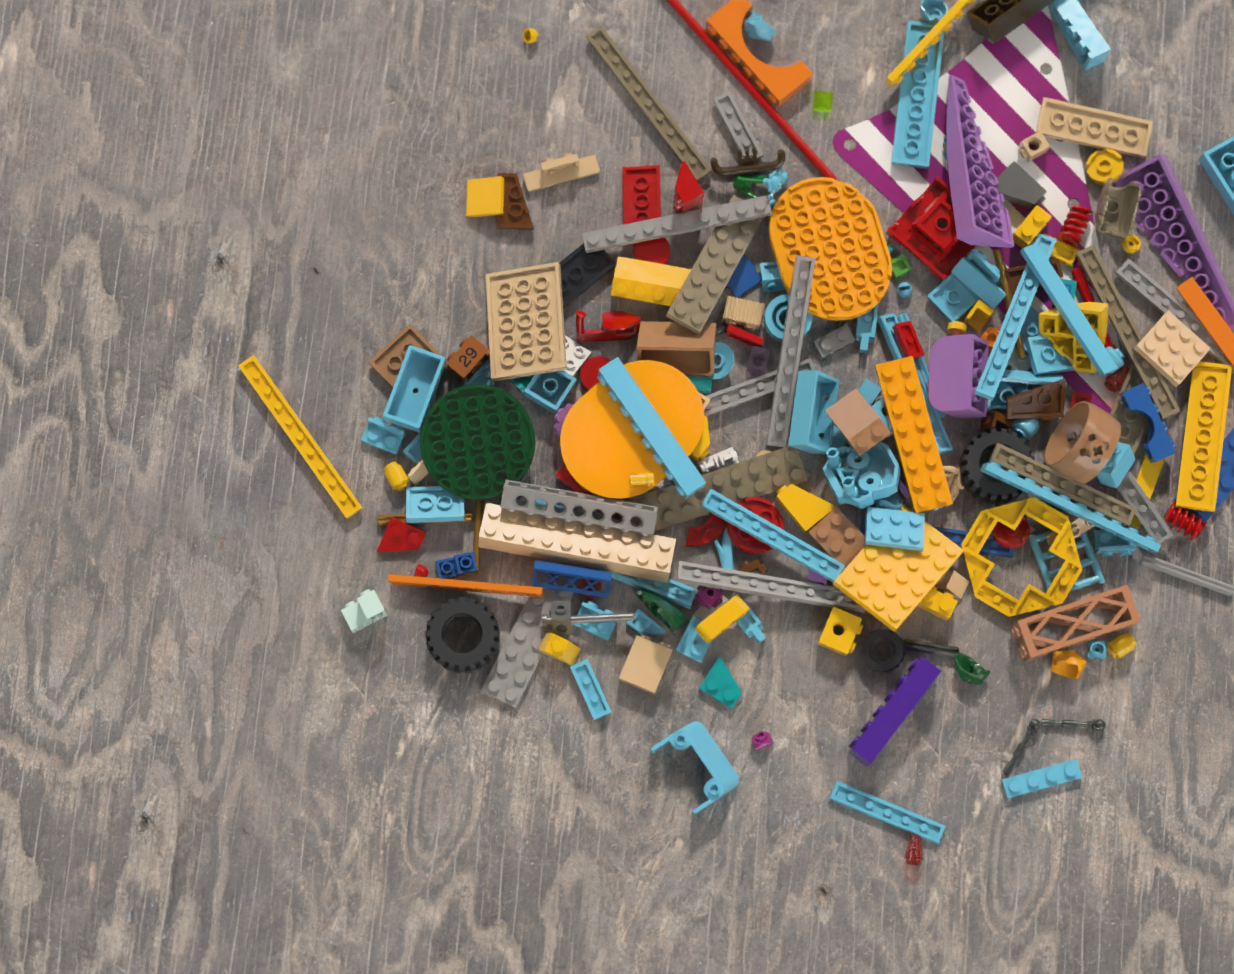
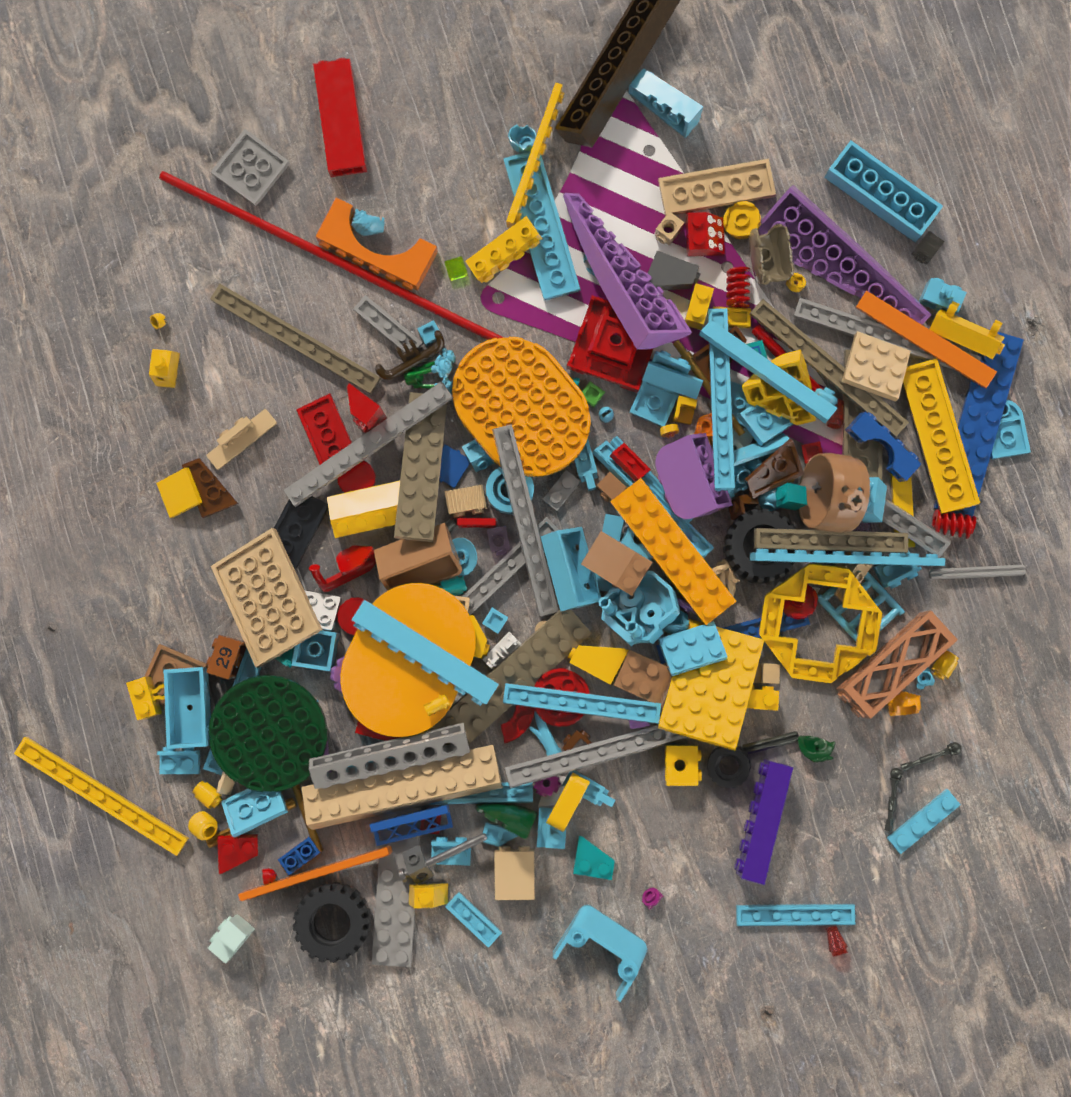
camera: 15 degrees left, 5 degrees up
(379, 364) = (144, 697): none -> yellow brick
(381, 501) = (203, 825): none -> yellow head
(520, 78) = (164, 365): none -> yellow torso
(724, 431) = (495, 620): none -> medium azure plate
(771, 148) = (427, 332): none -> medium azure tile
(873, 103) = (503, 250): none -> yellow brick
(879, 354) = (610, 487): none -> medium nougat brick
(1043, 431) = (791, 496): none -> teal brick
(1064, 165) = (704, 234): none -> red slope

